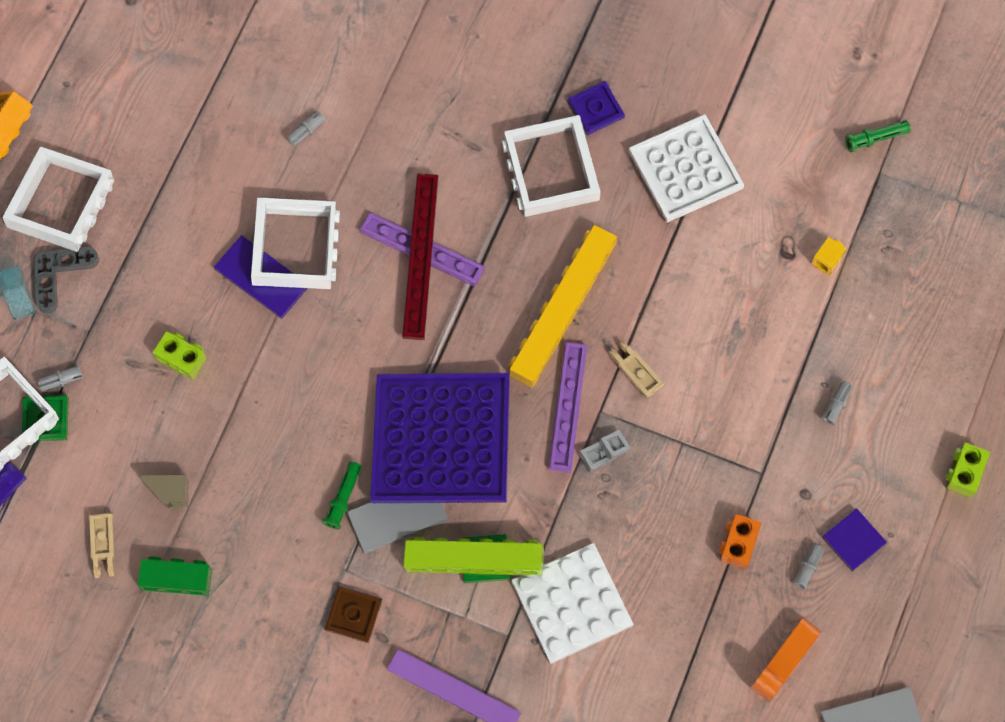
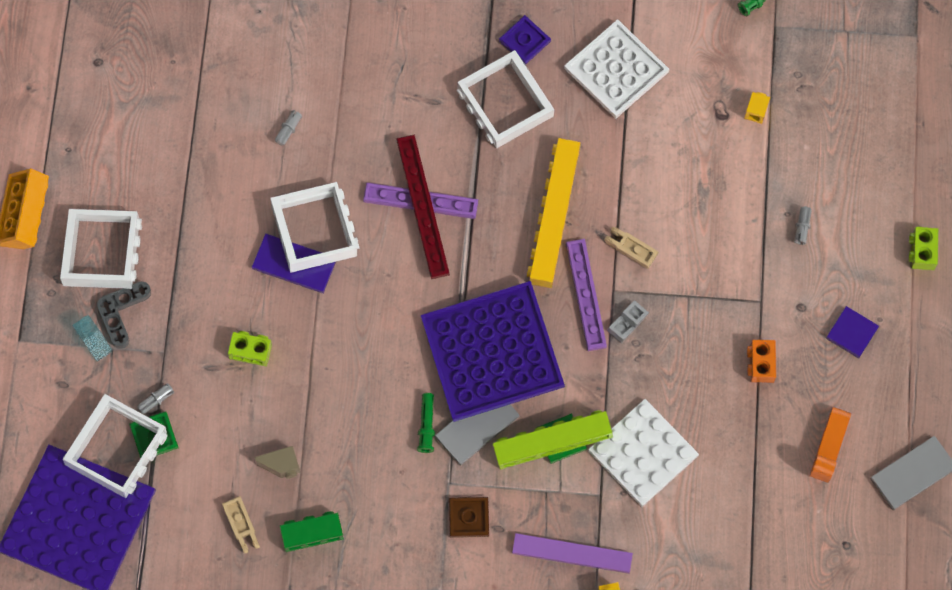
camera: 20 degrees left, 0 degrees up
(808, 566) = (823, 364): light grey axle -> none

